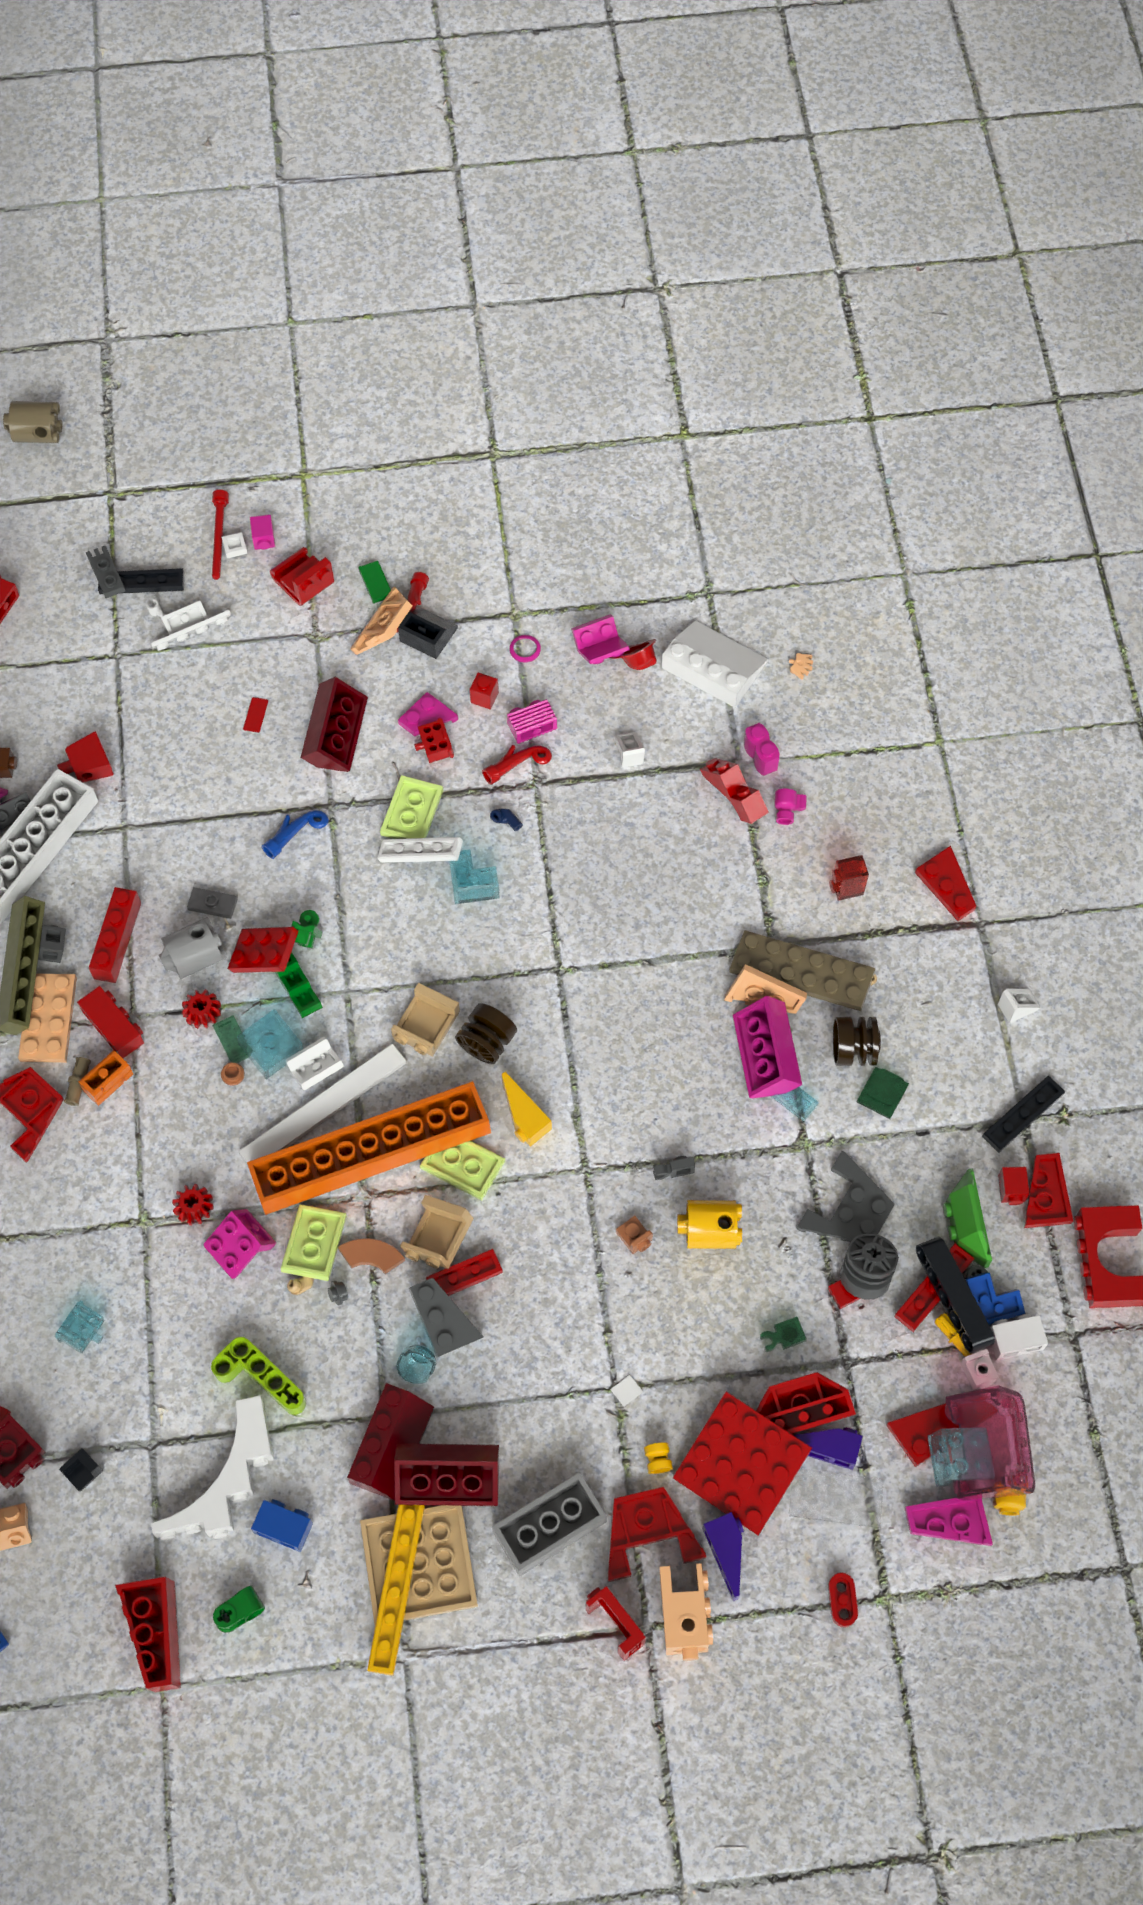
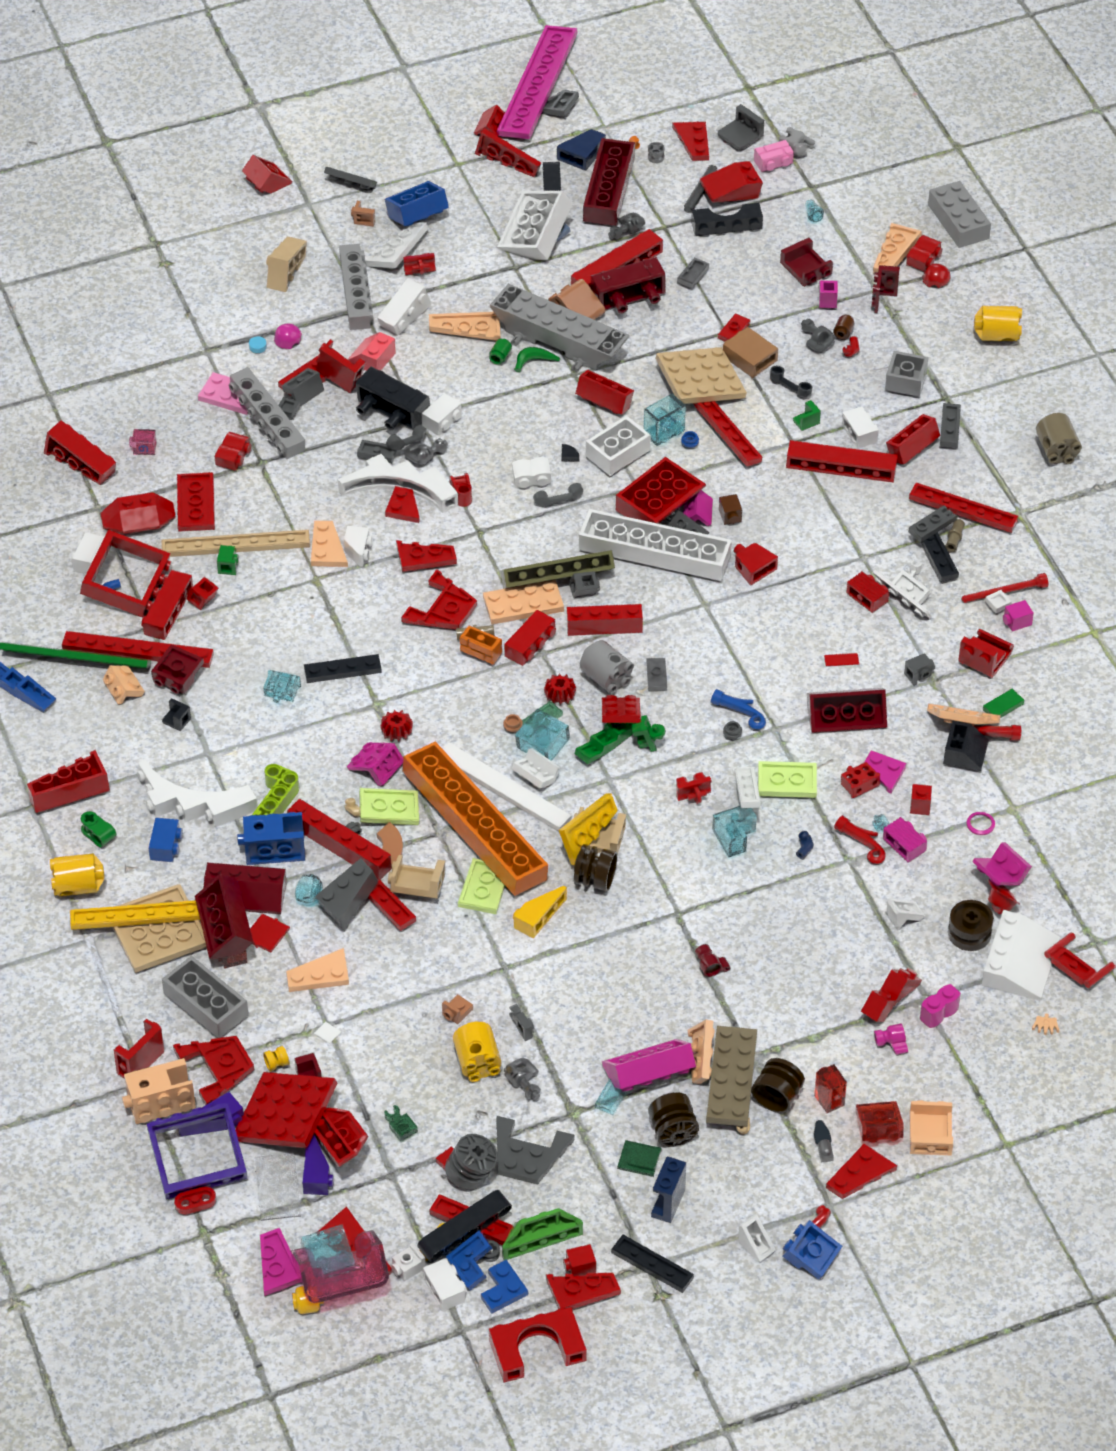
camera: 75 degrees right, 15 degrees down
(75, 1249) = (342, 668): none -> black plate
(87, 539) = (964, 507): none -> red plate
(126, 558) = (955, 535): none -> dark tan pin
(174, 661) = (867, 591): none -> red brick
(303, 643) = (918, 668): none -> dark grey brick
(312, 1650) = (76, 874): none -> yellow cylinder
(322, 841) = (732, 730): none -> dark grey plate
(329, 1392) = (273, 838): none -> blue torso
(349, 1311) = (341, 839): none -> red brick
(393, 916) = (693, 789): none -> red hips
(425, 1027) = (586, 825): none -> yellow wing
(459, 1427) = (268, 932): none -> red piece
(500, 738) = (880, 822): none -> clear light blue plate
(539, 1379) = (319, 973): none -> light nougat wing
(643, 953) = (709, 962): none -> dark red piece
(666, 691) = (970, 925): none -> dark brown wheel
(684, 1424) = (307, 1065): none -> dark red panel
(738, 617) = (1073, 965): none -> red plate
(750, 1187) = (520, 1077): none -> flat silver piece
(820, 1572) = (194, 1117): none -> dark purple window
(831, 924) = (778, 1085): none -> dark brown wheel
(894, 845) = (880, 1121): none -> clear red plate
(899, 907) = (823, 1140): none -> piece
(910, 803) = (931, 1128): none -> light nougat panel
(951, 1068) = (671, 1188): none -> dark blue panel
(1000, 932) = (823, 1215): none -> red arm
(1028, 1269) = (508, 1288): none -> blue plate
(1042, 953) = (811, 1249): none -> blue plate

